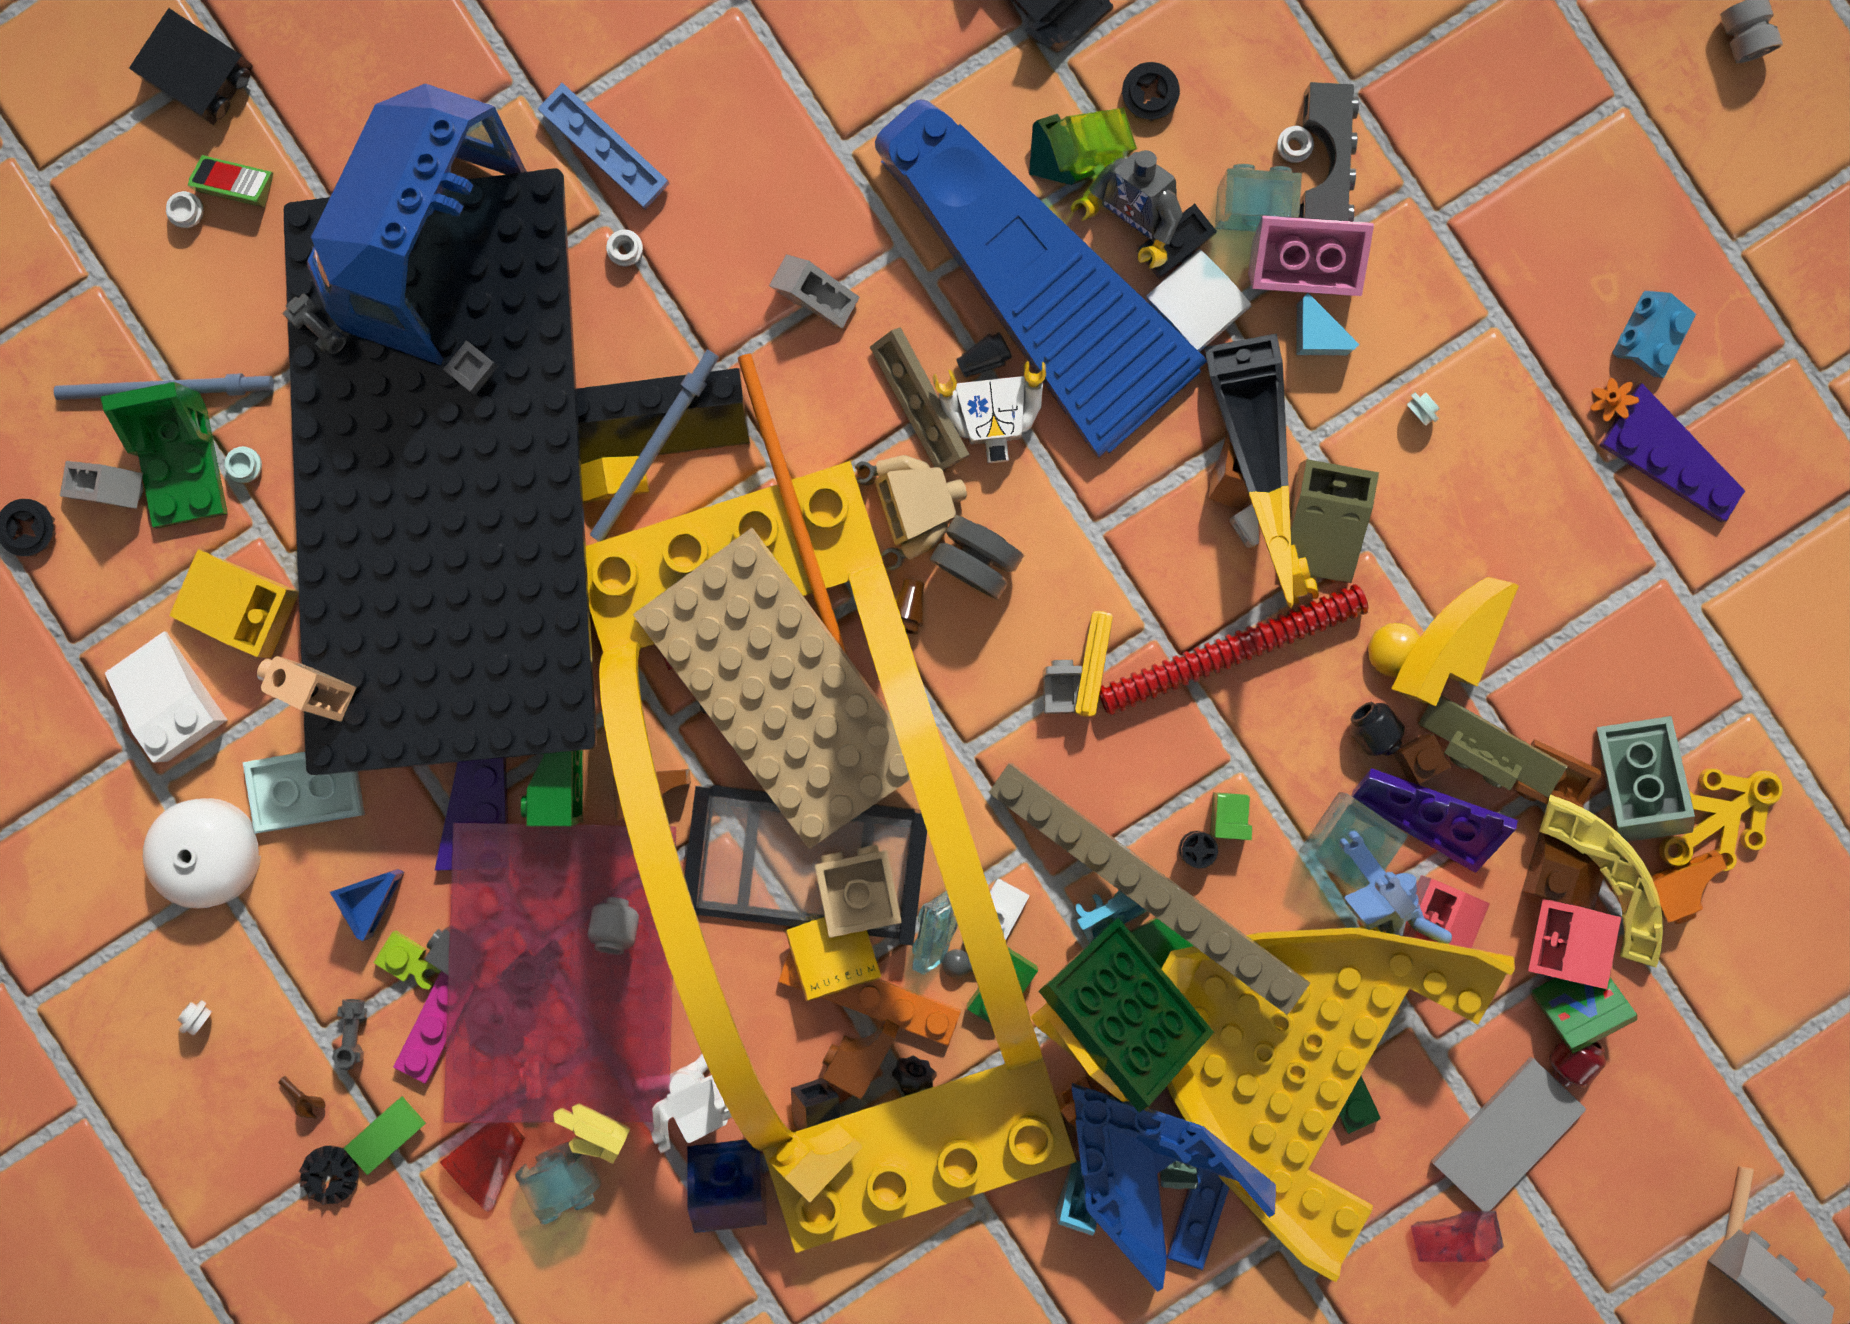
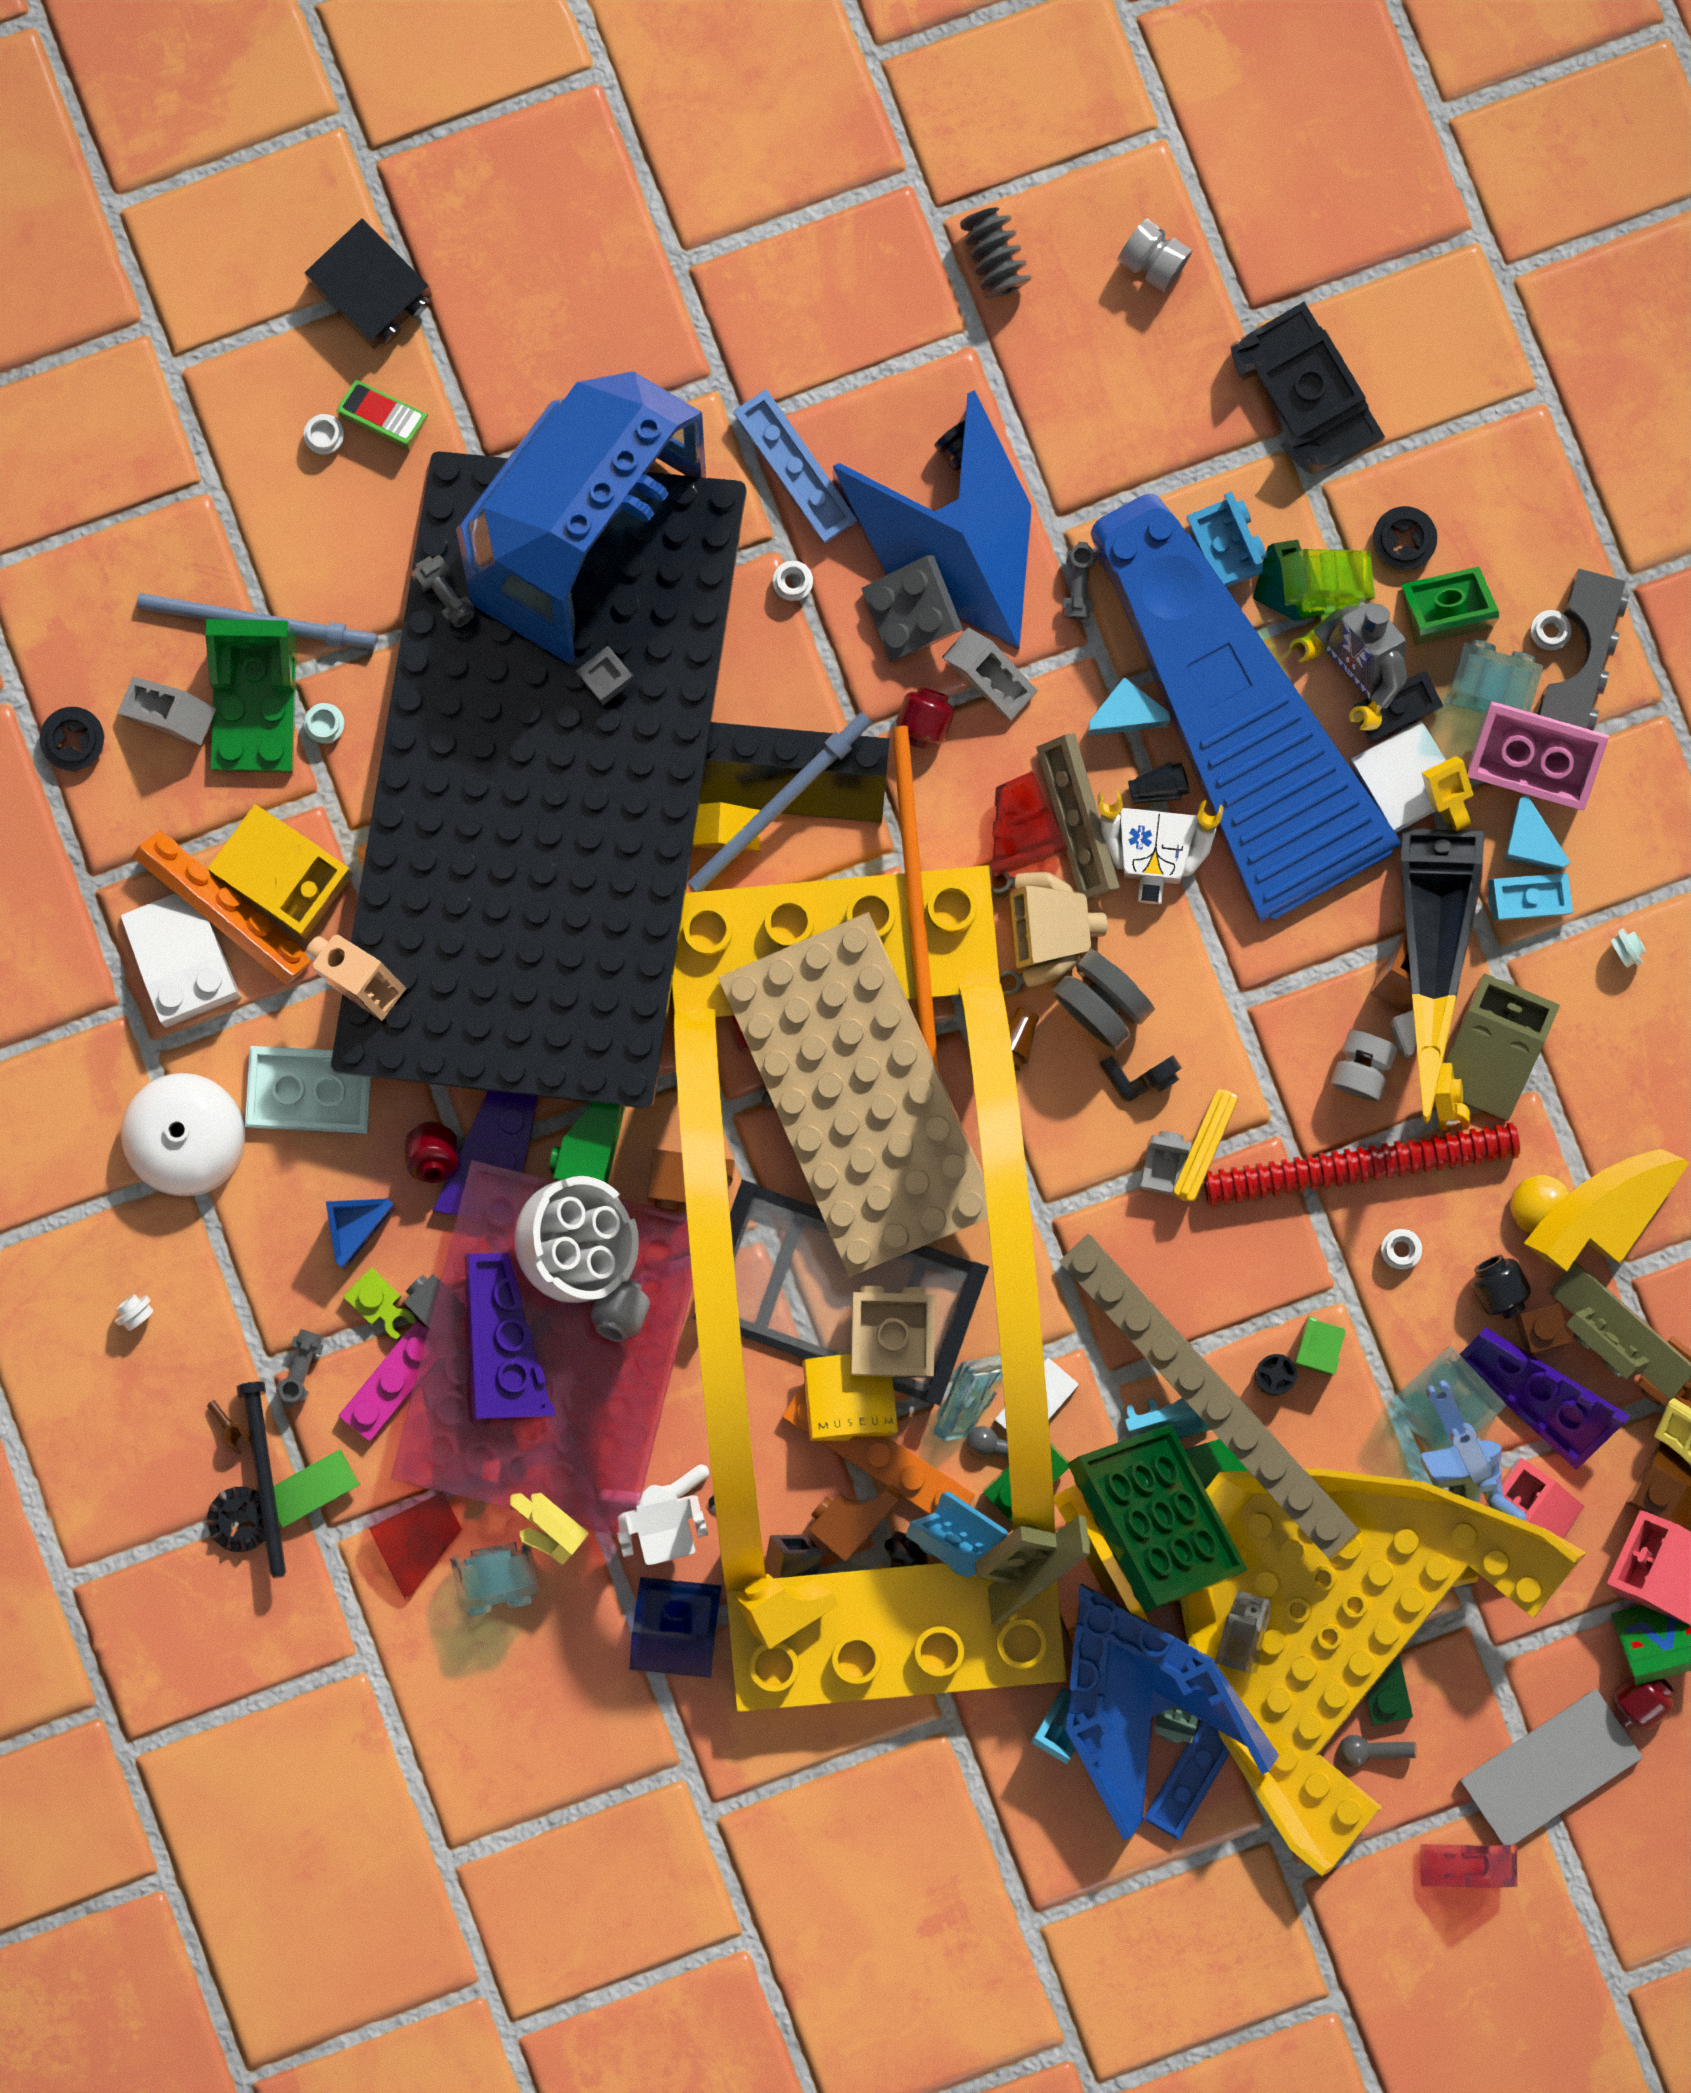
camera: 15 degrees right, 5 degrees down
(184, 644) = (222, 907): none -> orange plate
(339, 1136) = (251, 1393): none -> black bar
(420, 821) = (431, 1152): none -> dark red head
(517, 991) = (501, 1352): none -> dark purple wing
(575, 874) = (576, 1240): none -> white cylinder
(733, 248) = (912, 608): none -> dark grey plate
(743, 95) = (952, 445): none -> black wheel
(766, 190) = (975, 539): none -> blue windscreen
(767, 342) = (926, 716): none -> dark red head
(872, 173) = (1081, 560): none -> dark grey bar
(873, 419) = (1023, 826): none -> clear red slope
(942, 297) = (1128, 711): none -> medium azure slope
(955, 1058) = (956, 1534): none -> dark azure bracket
(997, 126) = (1226, 540): none -> dark azure bracket
(1026, 1080) = (1030, 1563): none -> olive bracket
(1041, 611) = (1160, 1076): none -> black plate
(1203, 142) = (1449, 605): none -> green slope
(1212, 575) = (1360, 1079): none -> light grey wheel
(1222, 1087) = (1244, 1633): none -> clear smoke leg
(1237, 304) = (1447, 788): none -> yellow plate
(1294, 715) = (1414, 1246): none -> white plate
(1328, 383) = (1530, 897): none -> medium azure plate
(1337, 1157) = (1356, 1751): none -> dark grey bar

